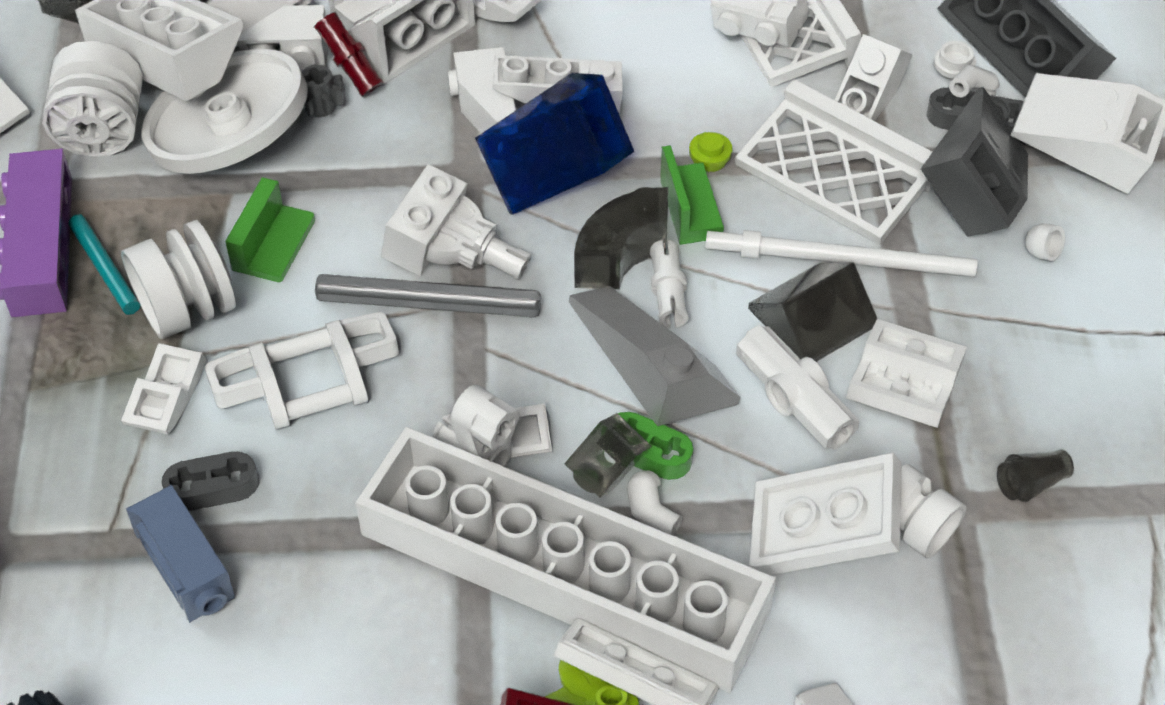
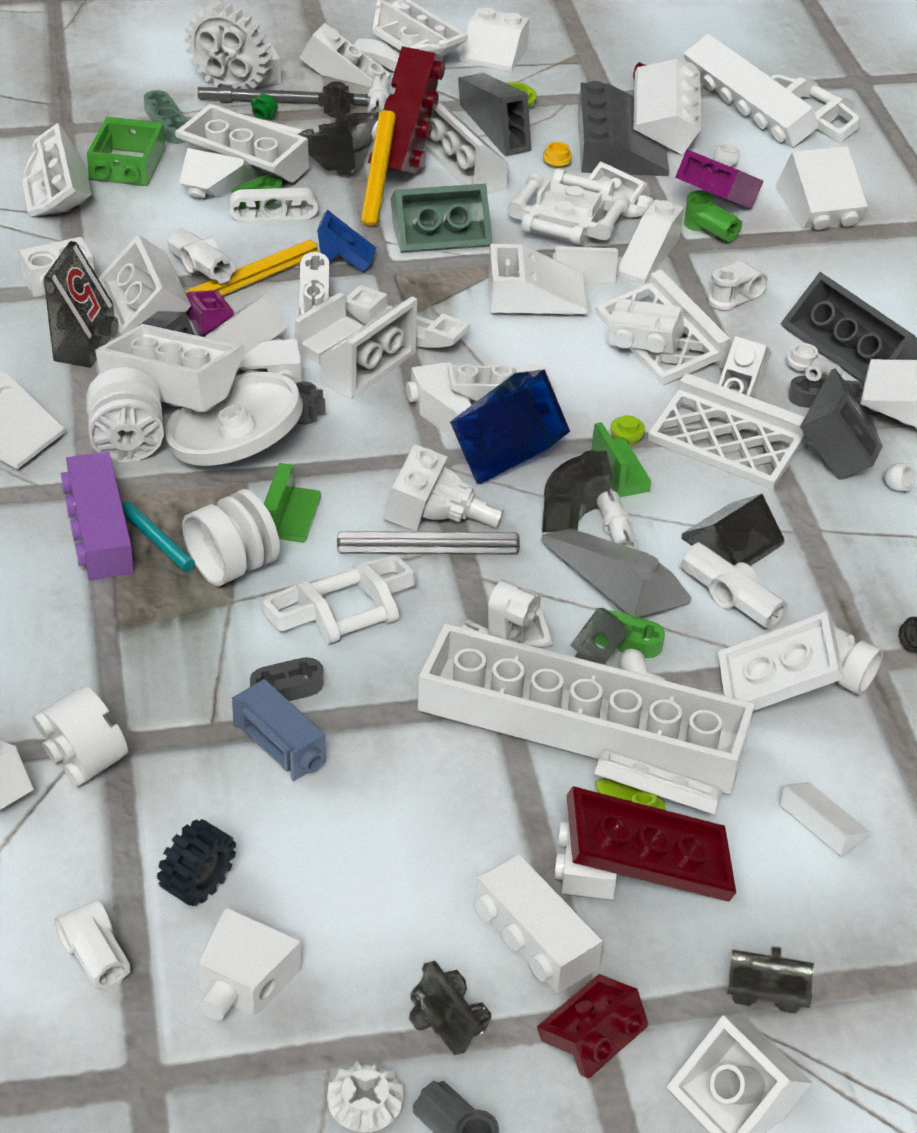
camera: 10 degrees left, 10 degrees down
(166, 390) = (232, 620): white slope -> none
(348, 54) = (324, 374): dark red pin -> none
(753, 244) = (675, 492): white bar -> none
(906, 373) = (814, 572): white slope -> none

